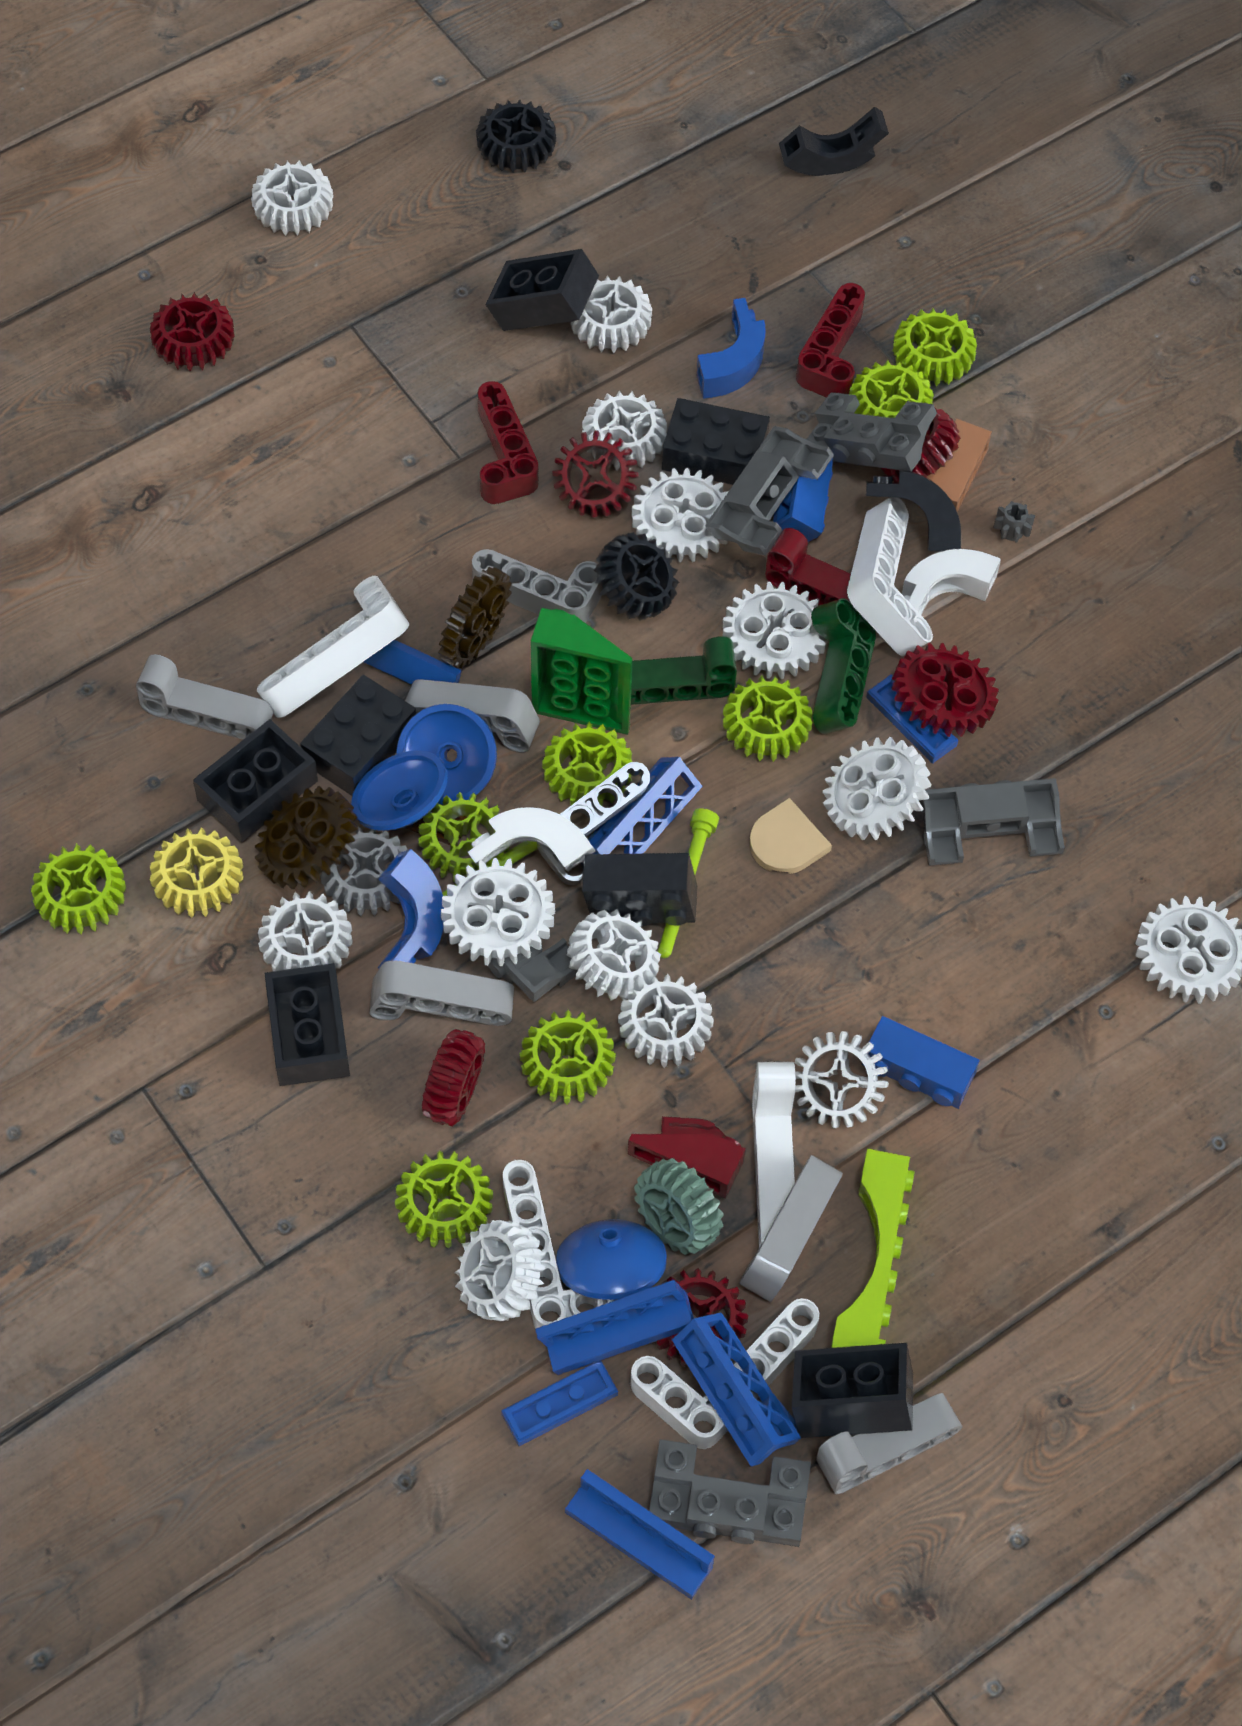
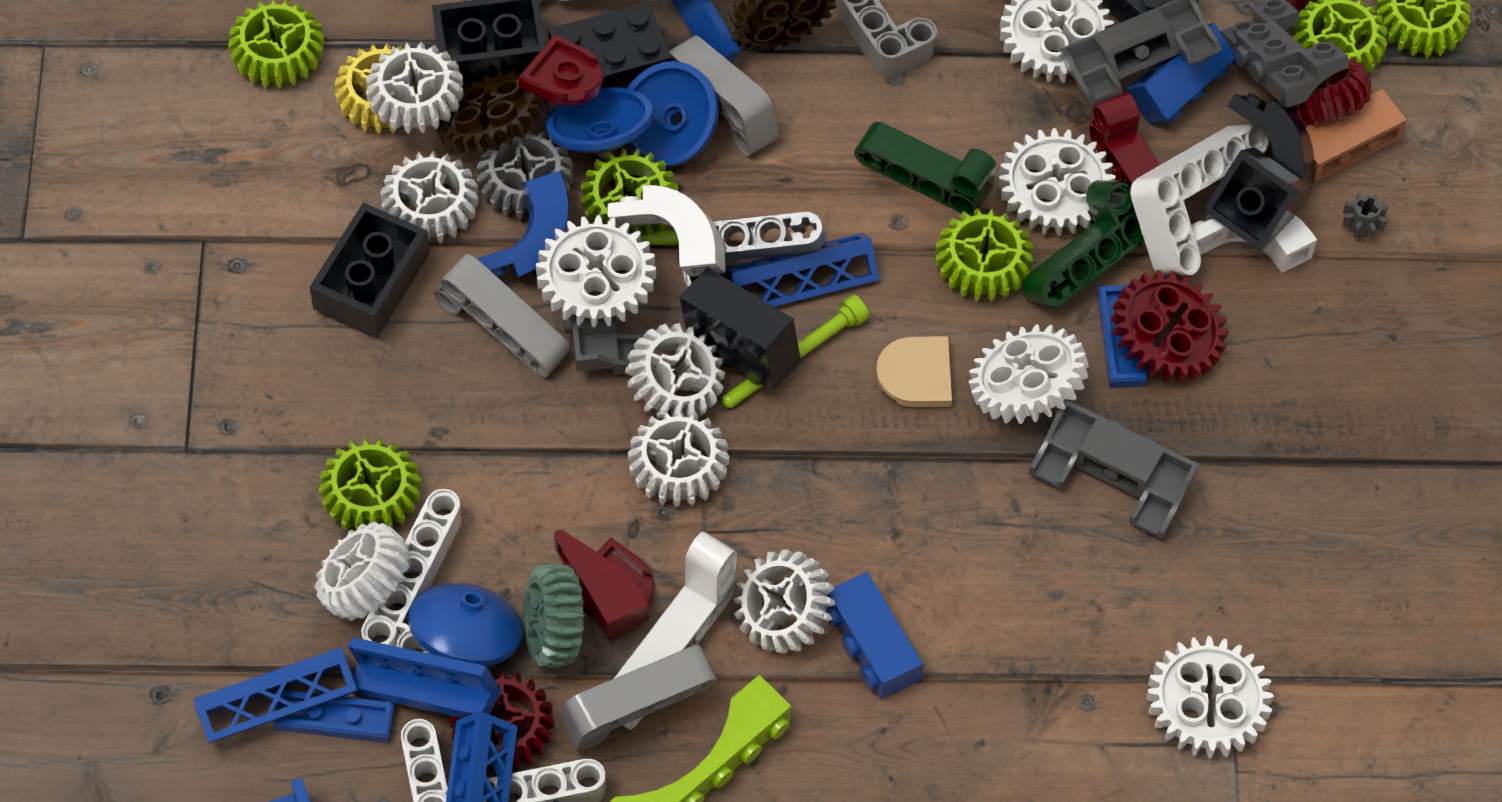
camera: 35 degrees right, 0 degrees up
(233, 836) = (435, 80): none -> white gear
(348, 770) = (563, 73): none -> dark red tile
(453, 1077) = (453, 388): dark red gear -> none
(492, 1410) = (270, 683): none -> blue fence
(551, 1039) = (583, 420): lime gear -> none
(579, 673) = (823, 105): green slope -> none
(591, 753) = (810, 191): lime gear -> none
(619, 568) = (960, 44): black gear -> none
(940, 553) = (1257, 198): none -> black slope

